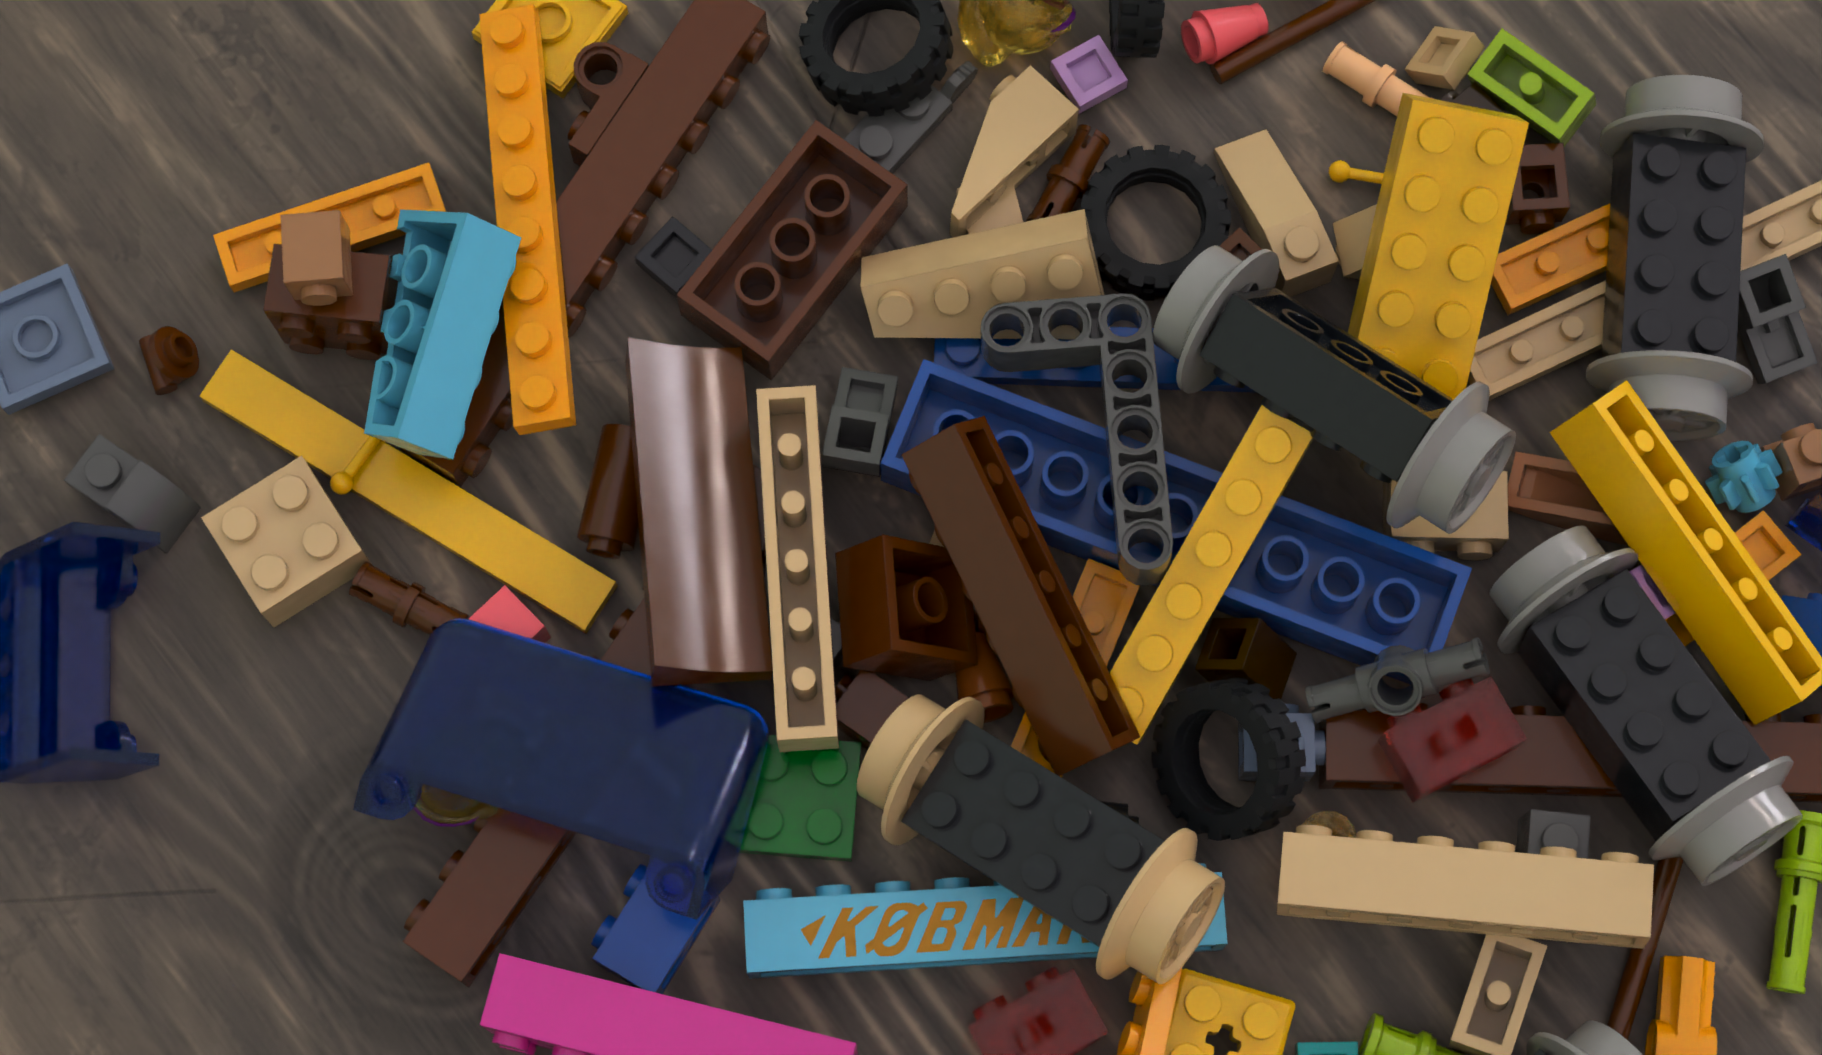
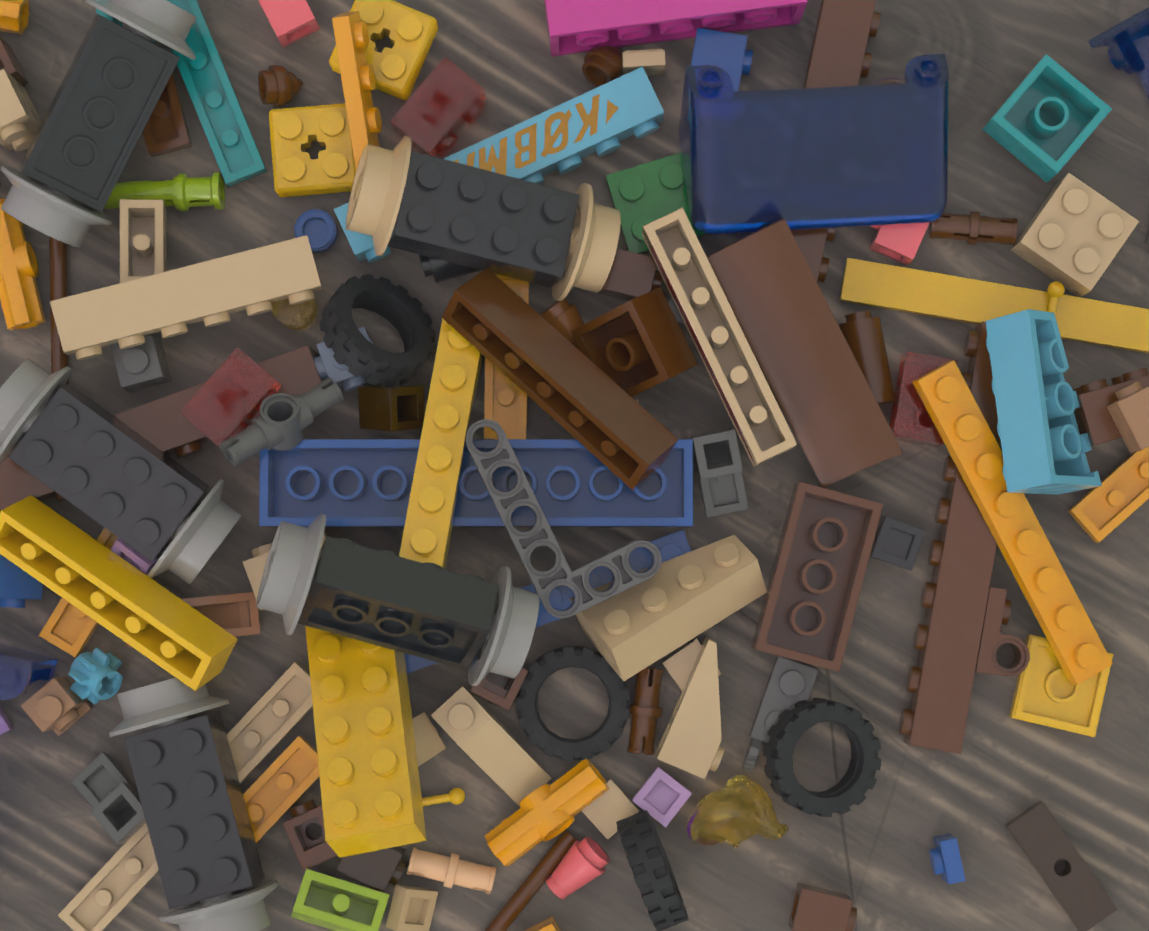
camera: 160 degrees right, 10 degrees up
(254, 699) = (1047, 118): none -> teal brick
(565, 451) = (909, 415): none -> clear red brick
(741, 986) = (651, 59): none -> tan tile
(795, 1002) = (603, 64): none -> reddish brown plate
(1158, 86) = (609, 809): none -> tan tile
(1237, 105) = (546, 812): none -> light orange piece
(1259, 939) = (319, 228): none -> blue tile

